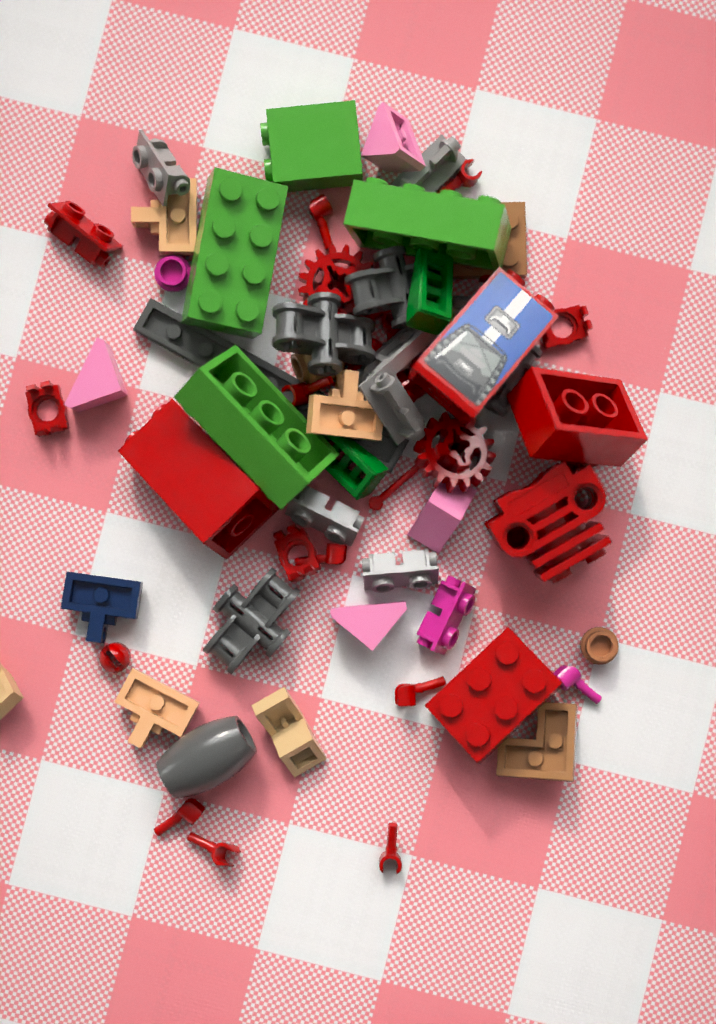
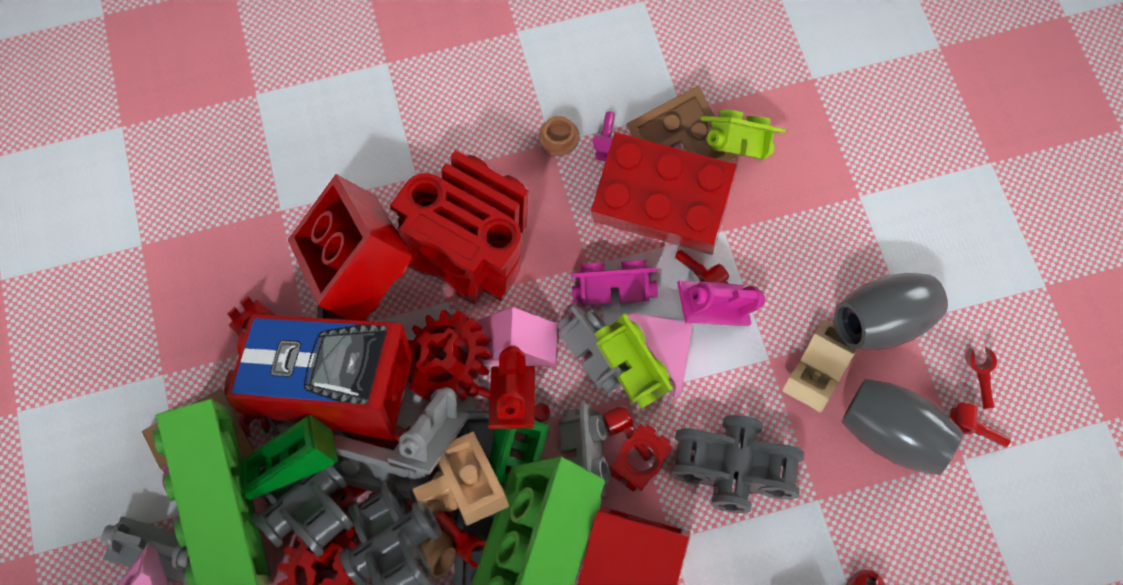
camera: 120 degrees left, 20 degrees down
(154, 707) = (888, 513): light nougat hinge -> none
(297, 809) = (890, 311): none -> dark grey piece
(380, 683) = (719, 302): none -> dark pink hinge
(381, 588) = (626, 343): none -> lime hinge
(390, 482) = (512, 392): none -> red hinge
(391, 849) = (870, 212): red hand -> none
(462, 178) = (145, 511): red hand -> none
(509, 791) = (739, 136): none -> lime hinge

